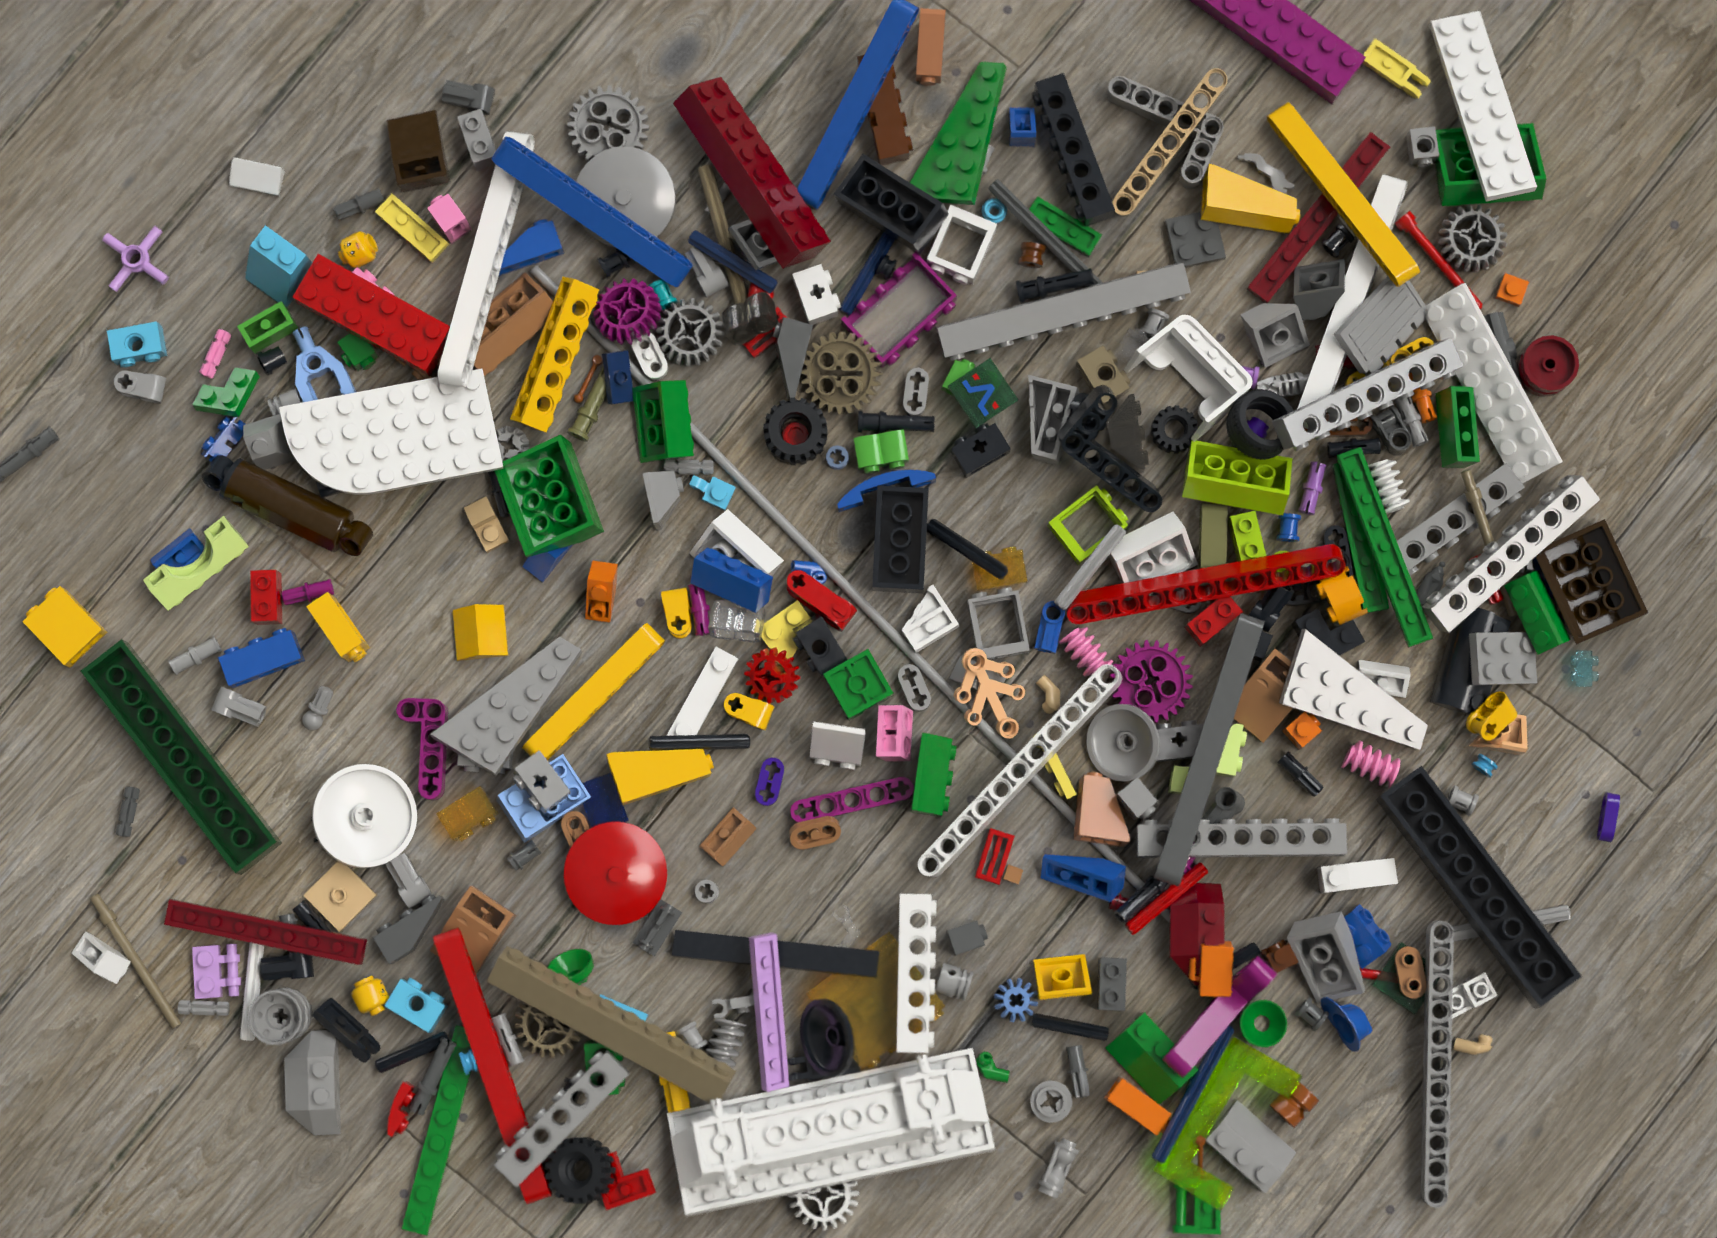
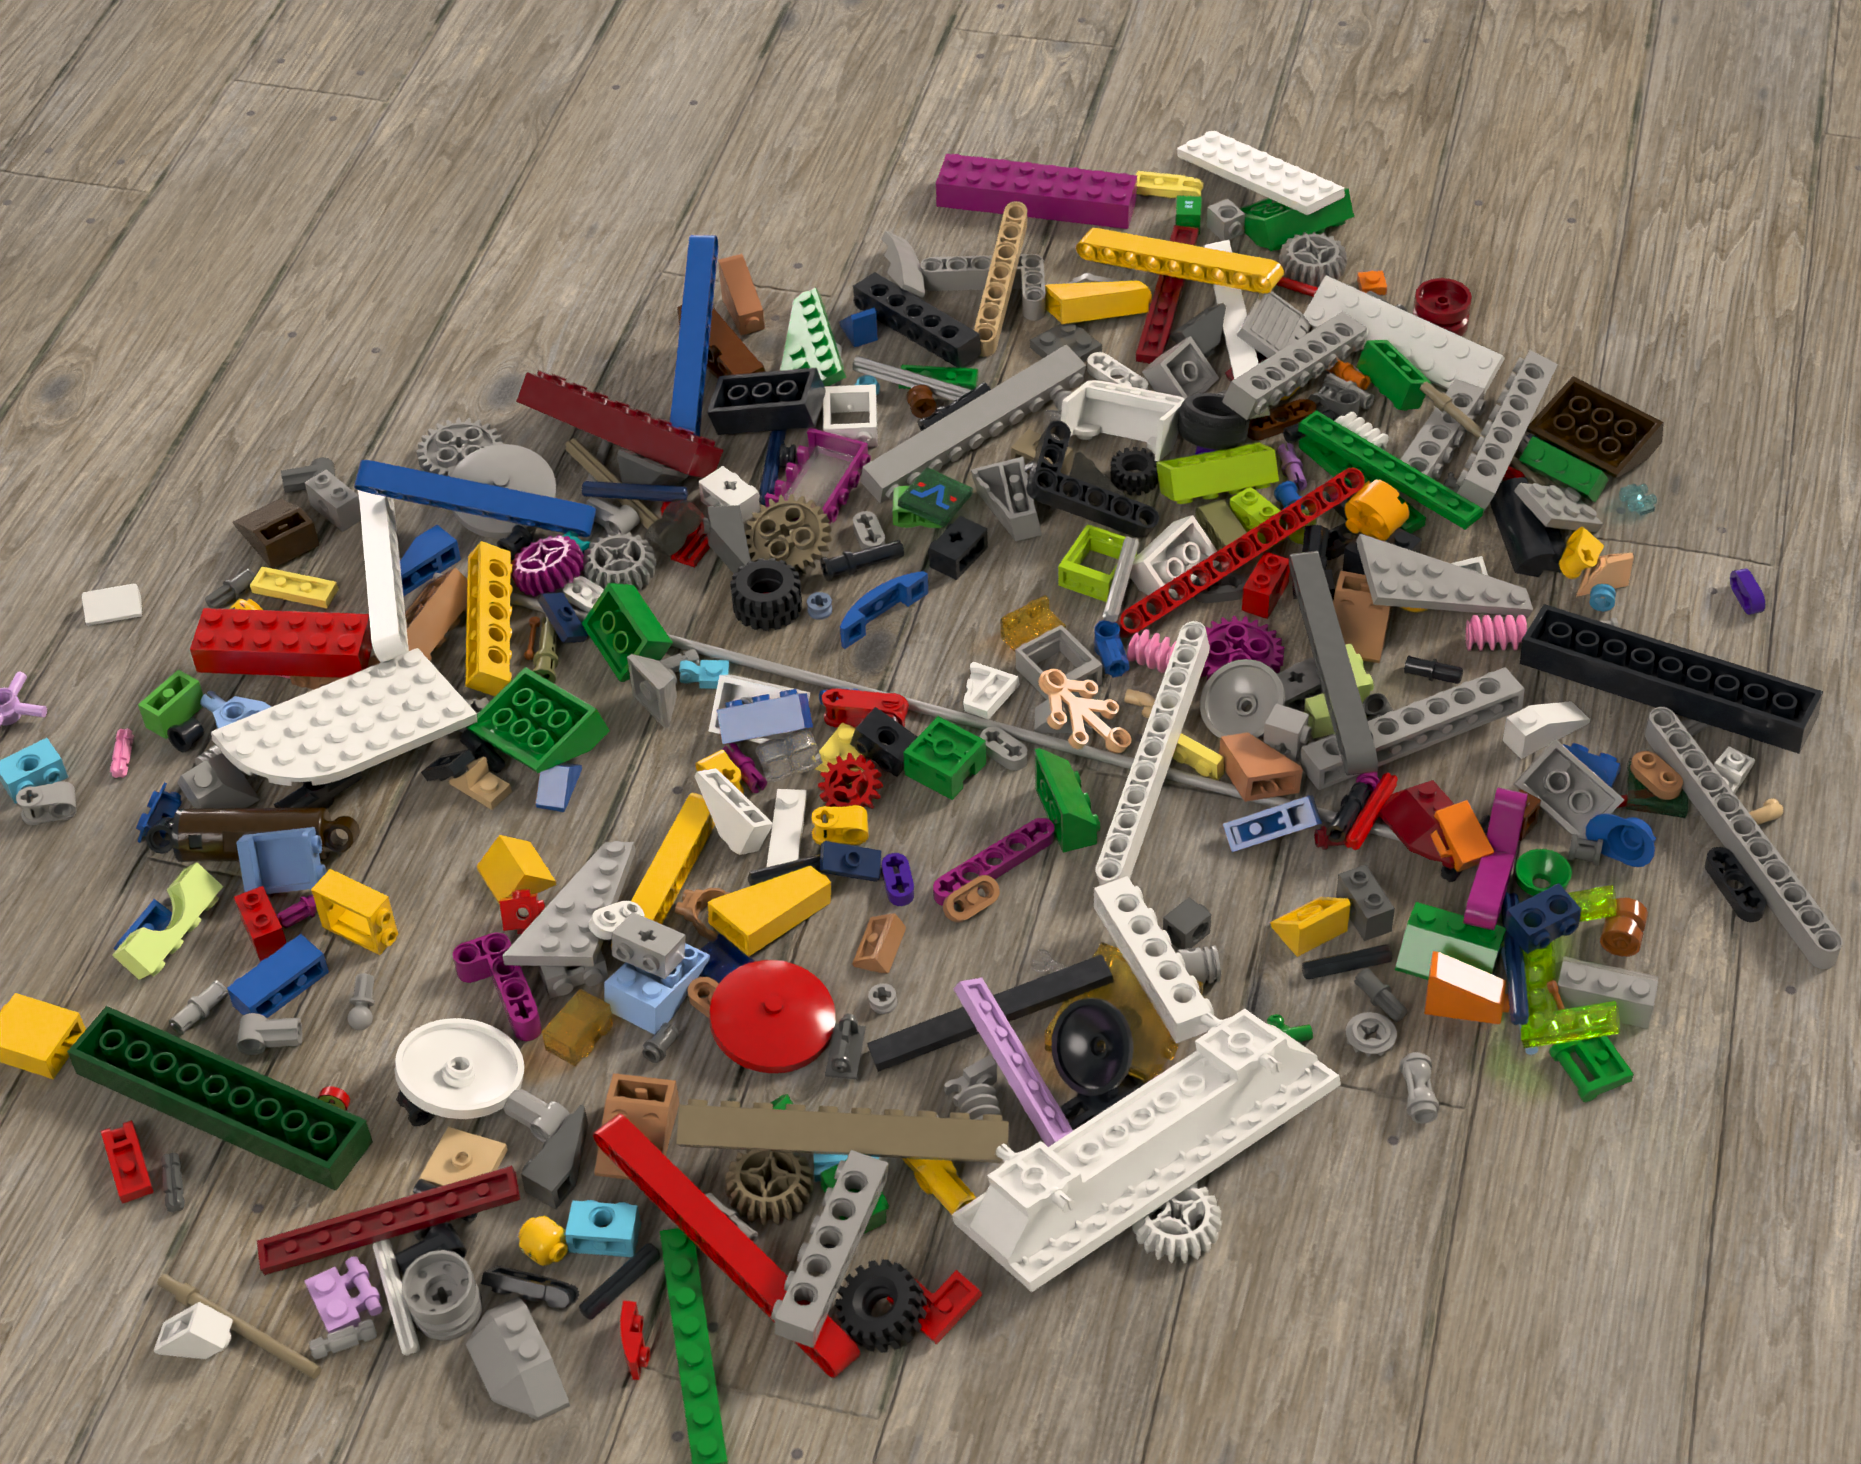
camera: 25 degrees left, 35 degrees down
(99, 778) = (127, 1162): none -> red plate
(231, 398) = (155, 771): plate -> none
(265, 795) = (335, 1097): none -> red tile
(276, 266) = (159, 645): medium azure slope -> none
(297, 548) = (281, 860): none -> medium blue panel
(357, 352) = (276, 689): green brick -> none
(428, 1085) = (655, 1302): dark grey pin -> none
(449, 217) = (330, 556): bright pink brick -> none
(464, 503) = (448, 765): none -> black plate
(466, 682) = (510, 910): none -> red brick
(468, 1061) = (692, 1248): dark azure bush -> none
(530, 741) = (608, 918): none -> white plate
(601, 591) = (631, 789): orange slope -> none
(602, 731) = (693, 904): none -> medium nougat helmet
(665, 663) = (734, 815): none -> white slope
(737, 754) = (850, 861): none -> dark blue plate
(837, 745) = (951, 800): white slope -> none
(881, 450) = (856, 580): bright green brick -> none
(894, 733) = (1005, 781): bright pink brick -> none
(900, 539) = (920, 634): black brick -> none
(967, 549) = (991, 612): black axle -> none
(987, 877) = (1175, 870): red tile -> none
(1013, 874) = (1202, 862): medium nougat piece -> none
(1016, 1008) = (1274, 957): medium blue gear -> none
(1098, 69) = (904, 264): none -> light grey slope
(1227, 1075) = (1549, 913): none -> dark blue brick
(1233, 316) = (1104, 367): none -> white beam
(1302, 729) = (1410, 633): orange brick -> none
(1337, 240) = (1194, 300): black bush -> none
(1391, 122) = (1188, 211): none -> green brick
(1415, 1119) = (1734, 896): none -> black beam

